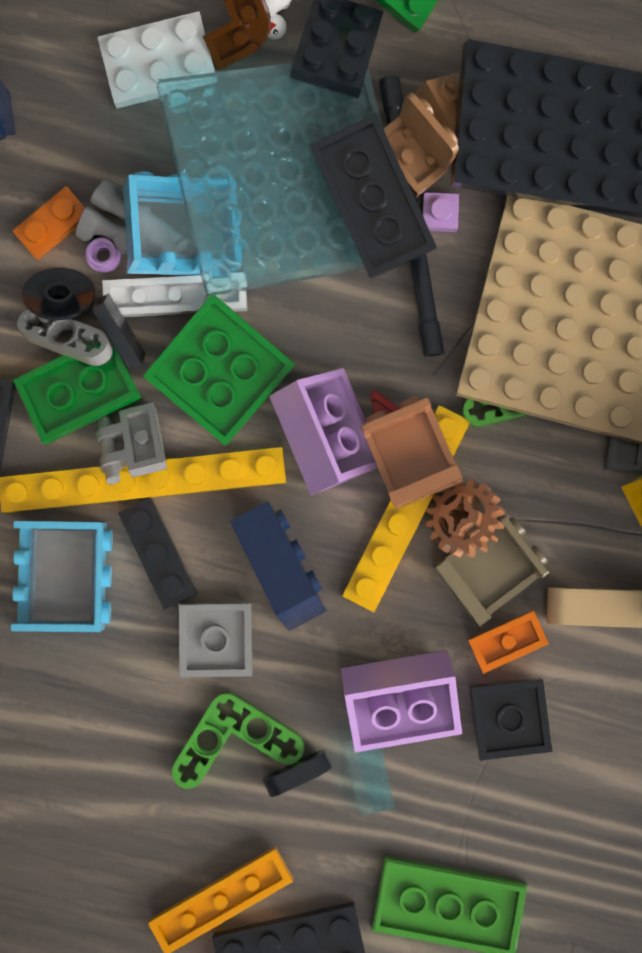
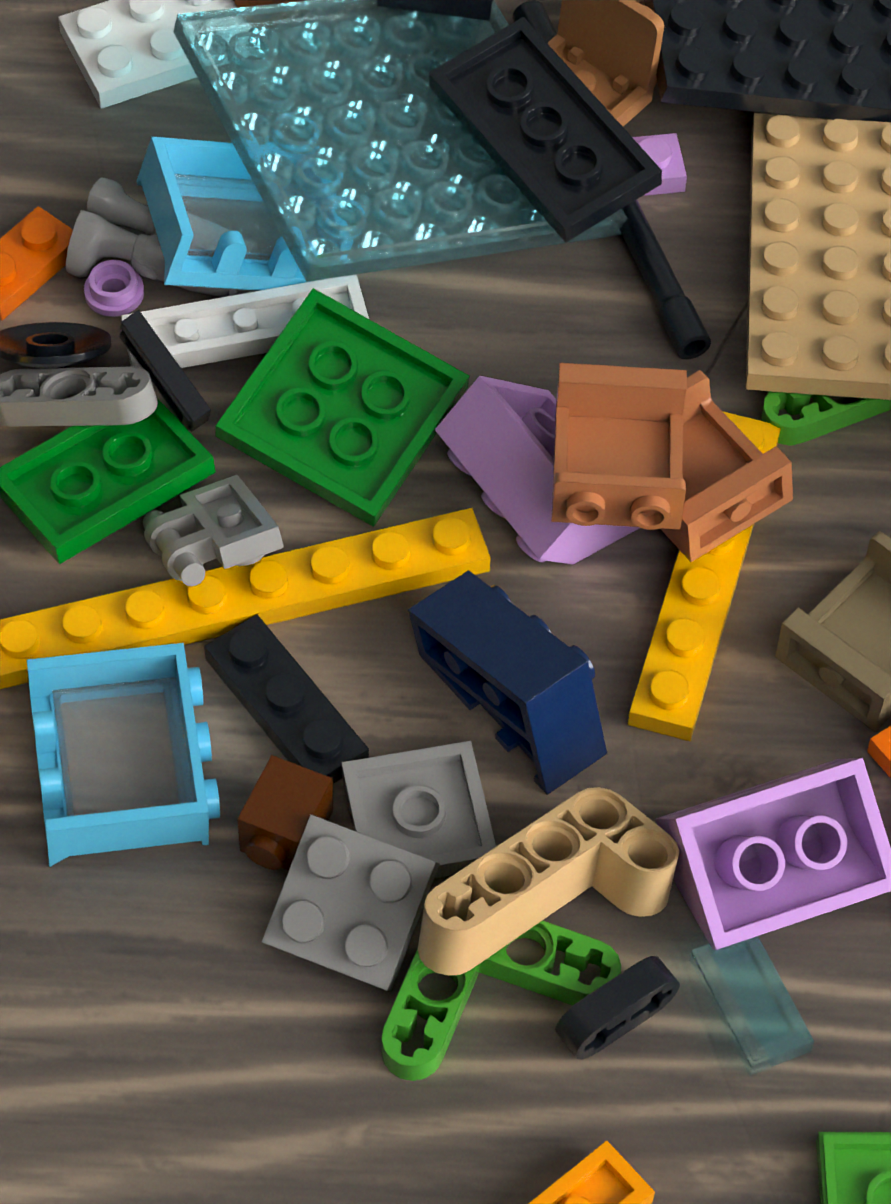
camera: 15 degrees left, 30 degrees down
(143, 631) = (279, 812): none -> reddish brown brick
(168, 690) = (350, 903): none -> light grey plate
(265, 707) = (578, 845): none -> tan beam
(363, 456) = (619, 446): none -> nougat panel
(465, 533) = (812, 552): nougat gear -> none

